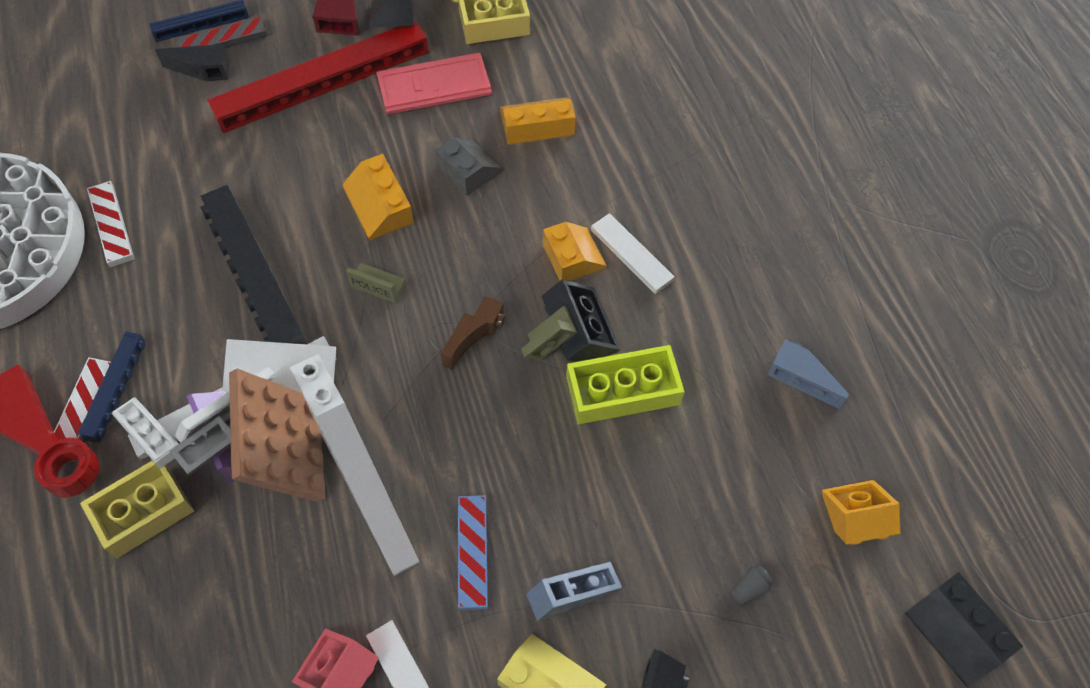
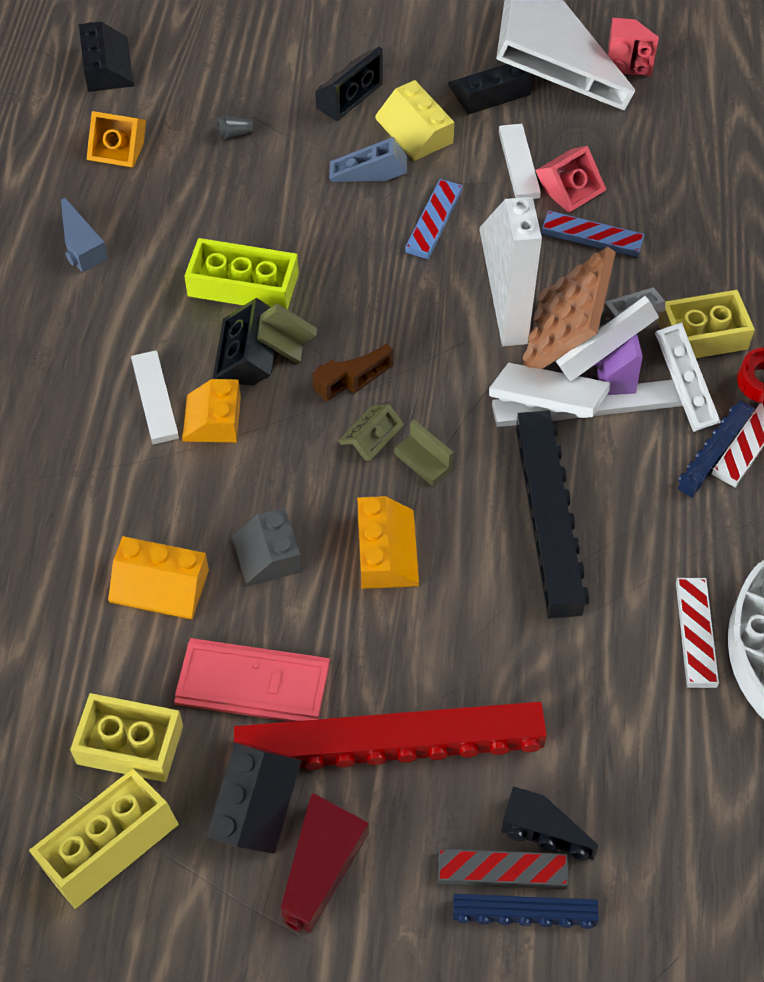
camera: 155 degrees left, 5 degrees down
(290, 602) = (592, 233): none -> medium blue tile
(433, 287) = (372, 430): none -> olive panel

